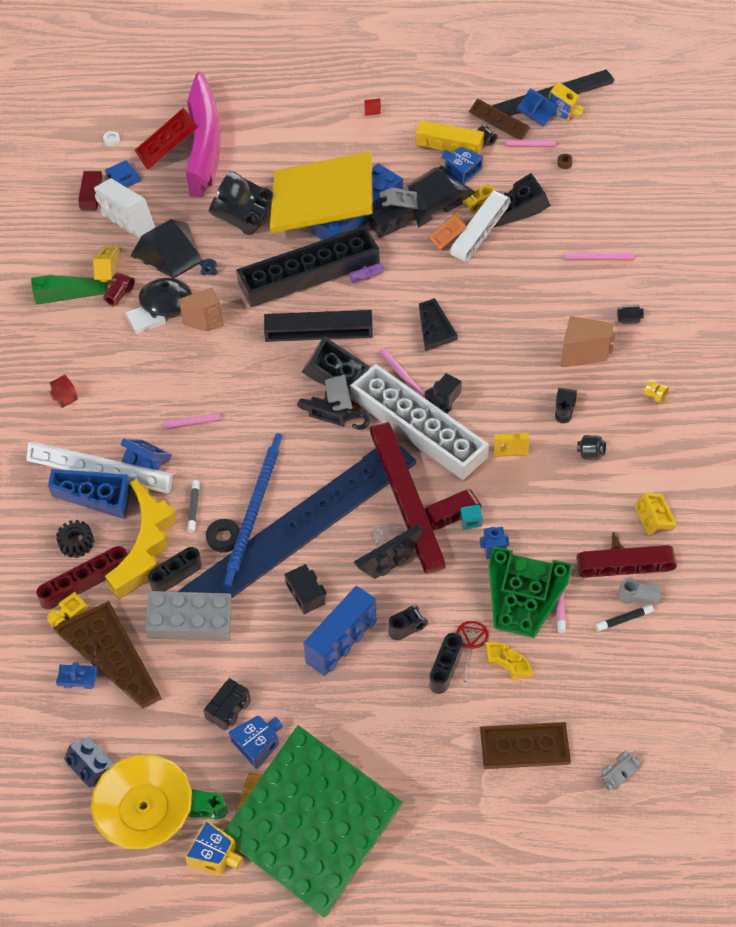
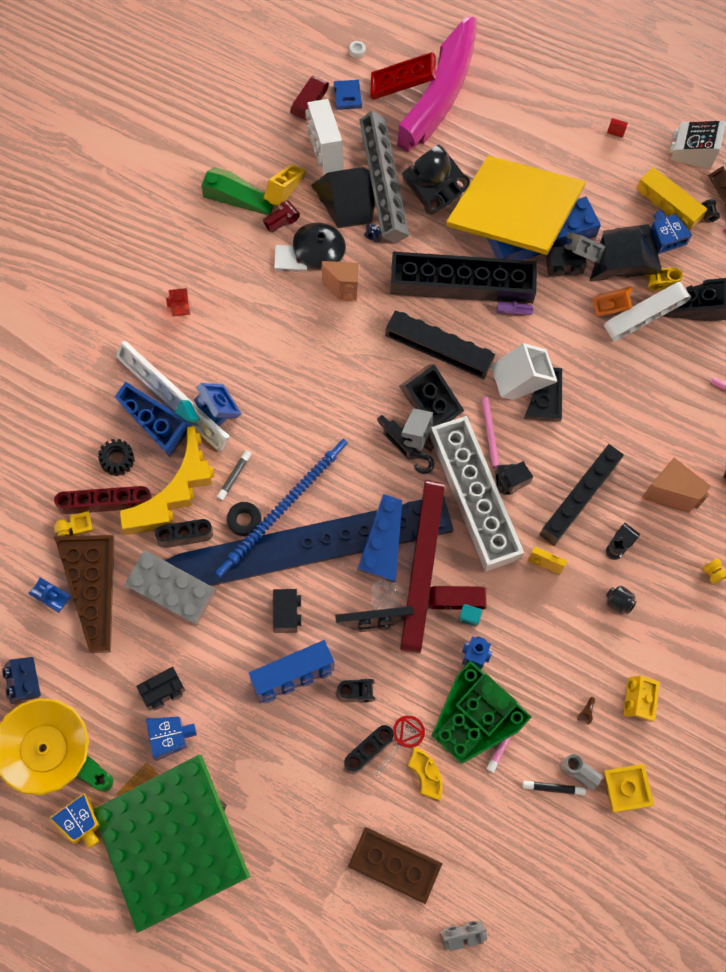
camera: 20 degrees right, 15 degrees up
(121, 468) = (186, 411): none -> teal slope
(191, 420) = (277, 387): bright pink bar -> none
(194, 221) = (384, 177): none -> light grey brick
(361, 495) = (382, 545): none -> blue wedge
(403, 312) = (523, 371): none -> white slope
(446, 90) = (697, 143): none -> white slope
(509, 384) = (581, 495): none -> black brick
(626, 561) = (587, 733): dark red beam -> none
(687, 586) = (628, 788): none -> yellow plate

